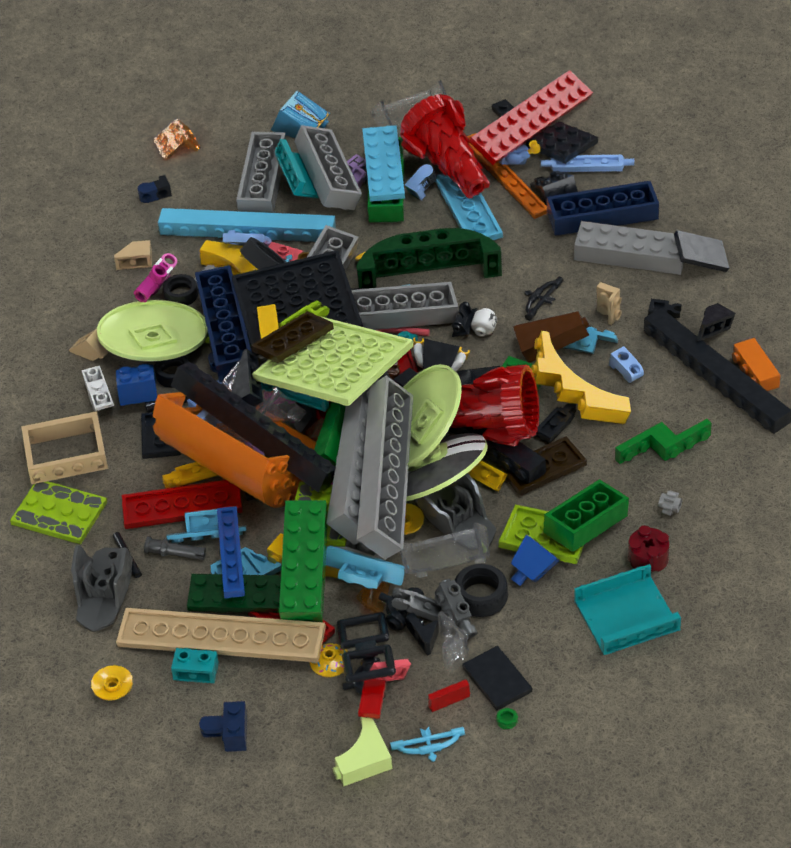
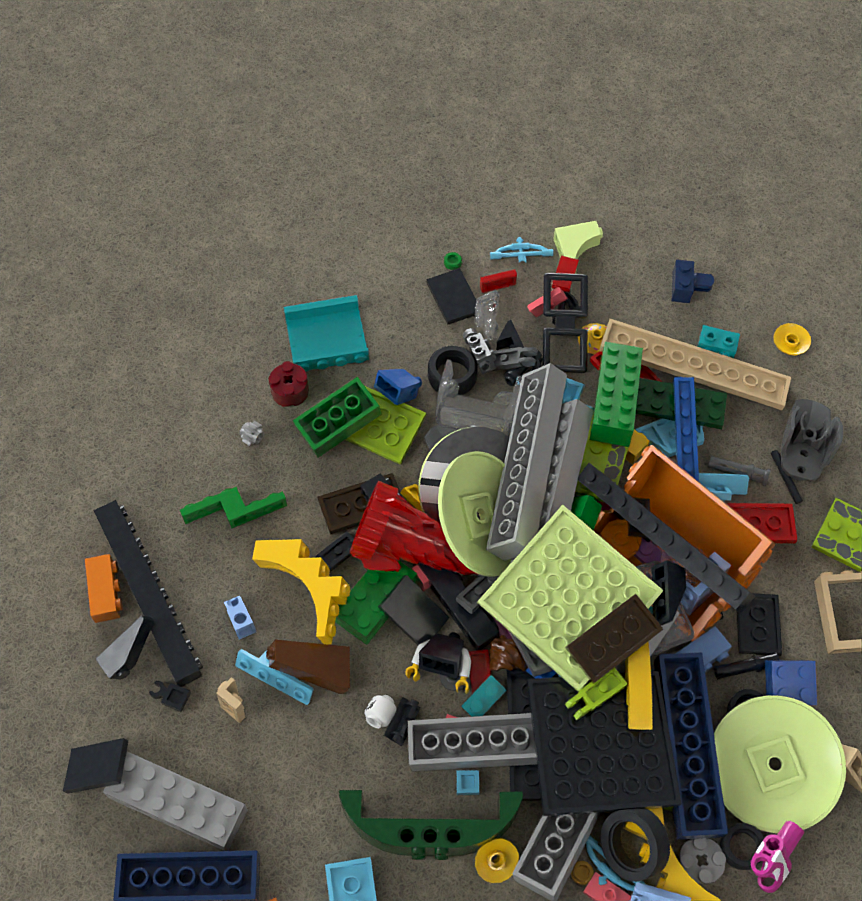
camera: 175 degrees left, 15 degrees up
(97, 388) = (833, 683): white slope -> none
(537, 294) = (300, 744): black piece -> none

